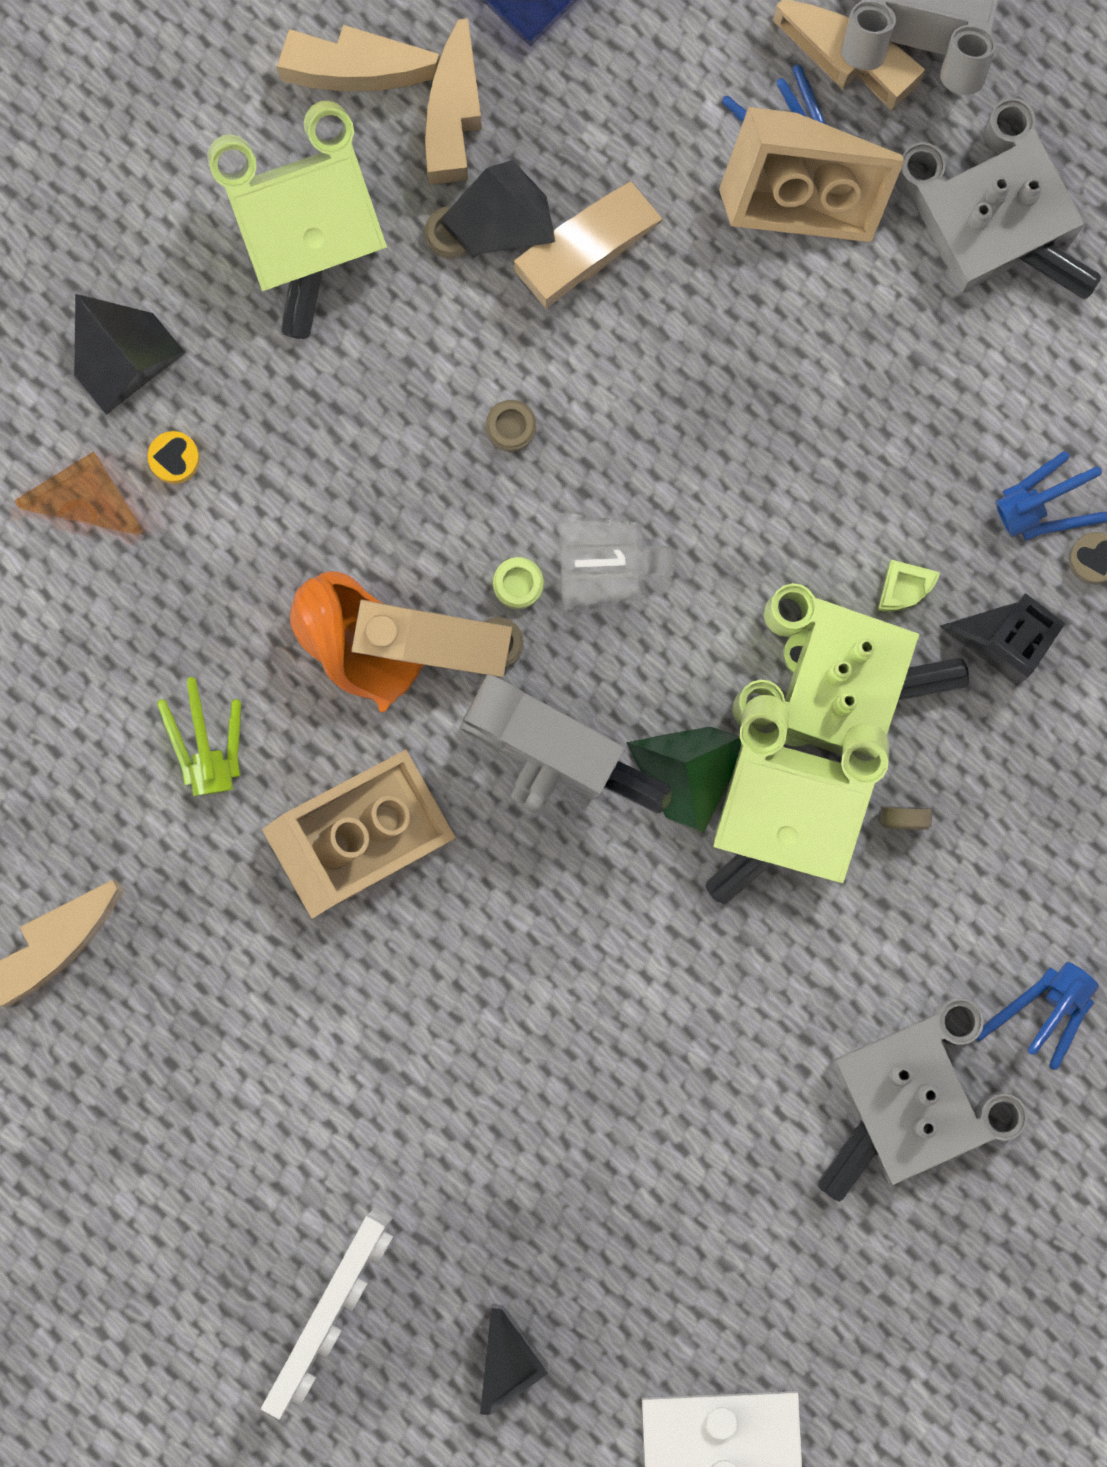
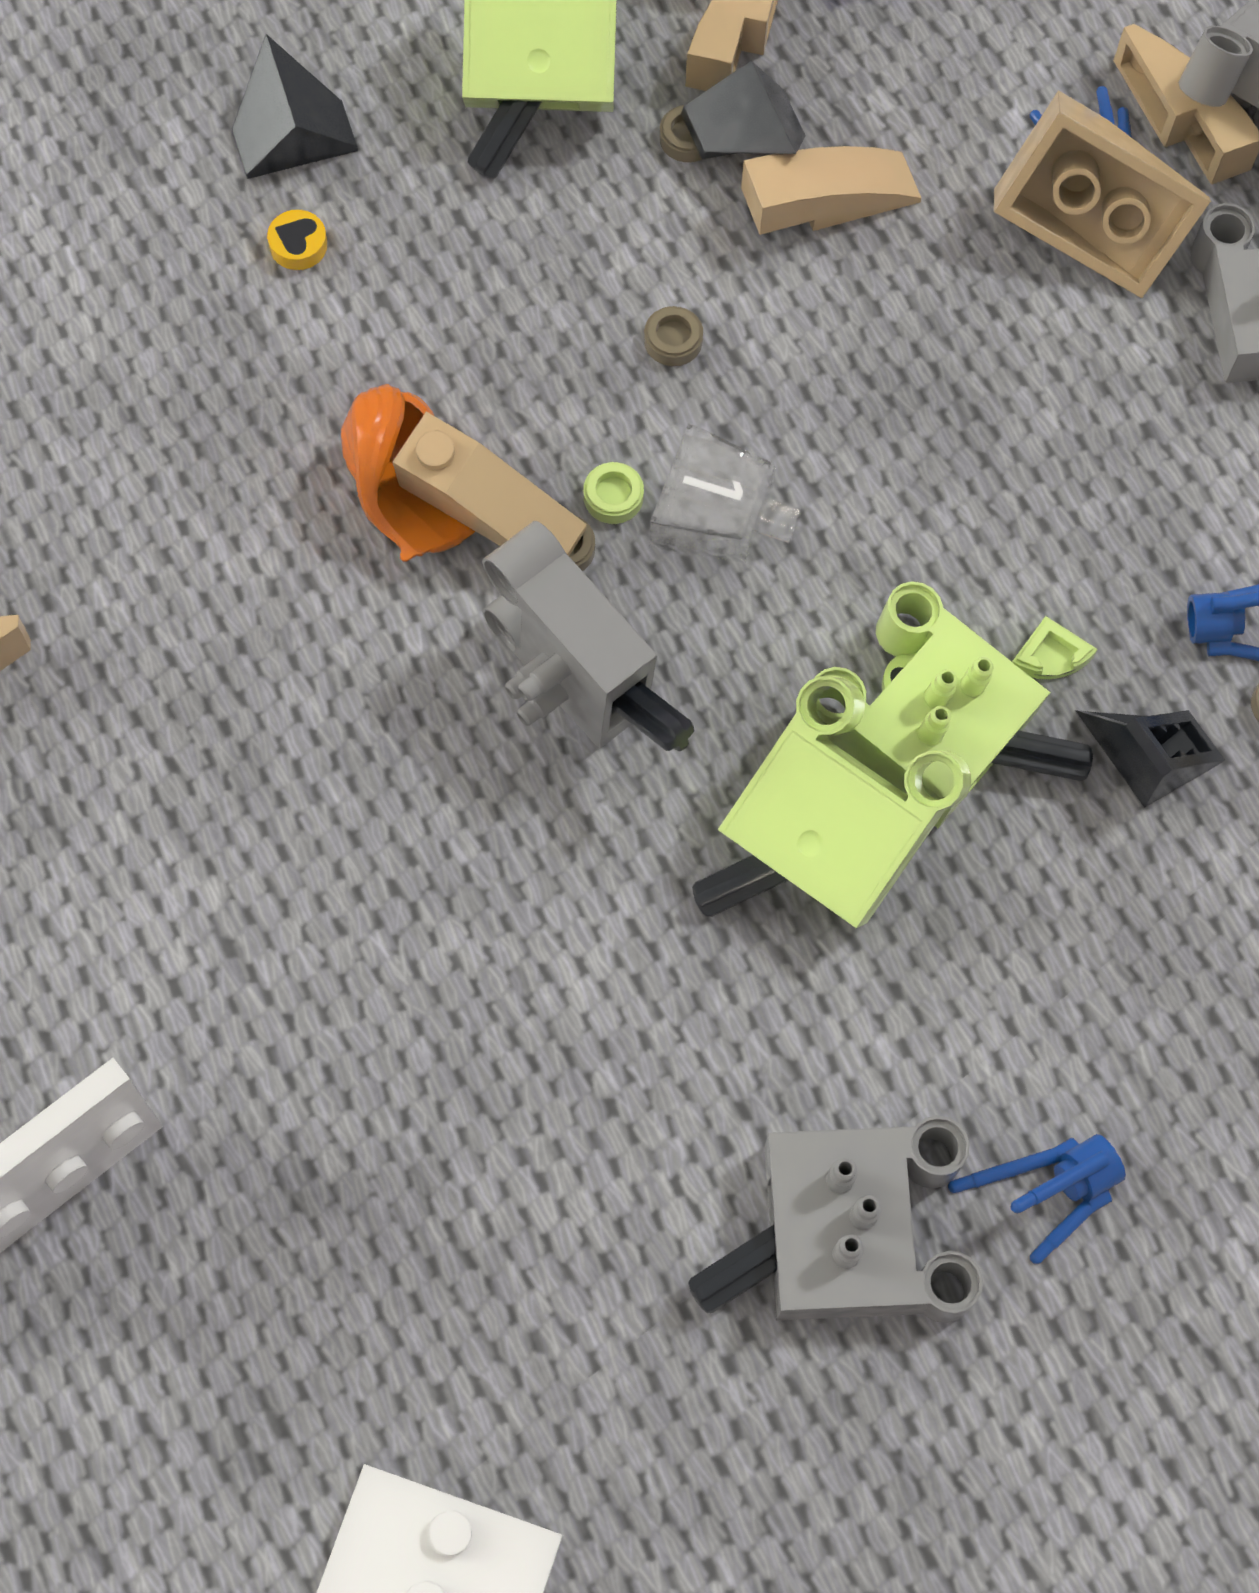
camera: 20 degrees right, 15 degrees down
(82, 495) = (184, 242): clear orange tile -> none
(209, 770) = (183, 554): lime plant -> none
(358, 833) = (315, 677): tan slope -> none
(510, 1362) = (219, 1348): black slope -> none
(694, 765) = (720, 757): dark green slope -> none
(906, 817) = (959, 895): dark tan tile -> none

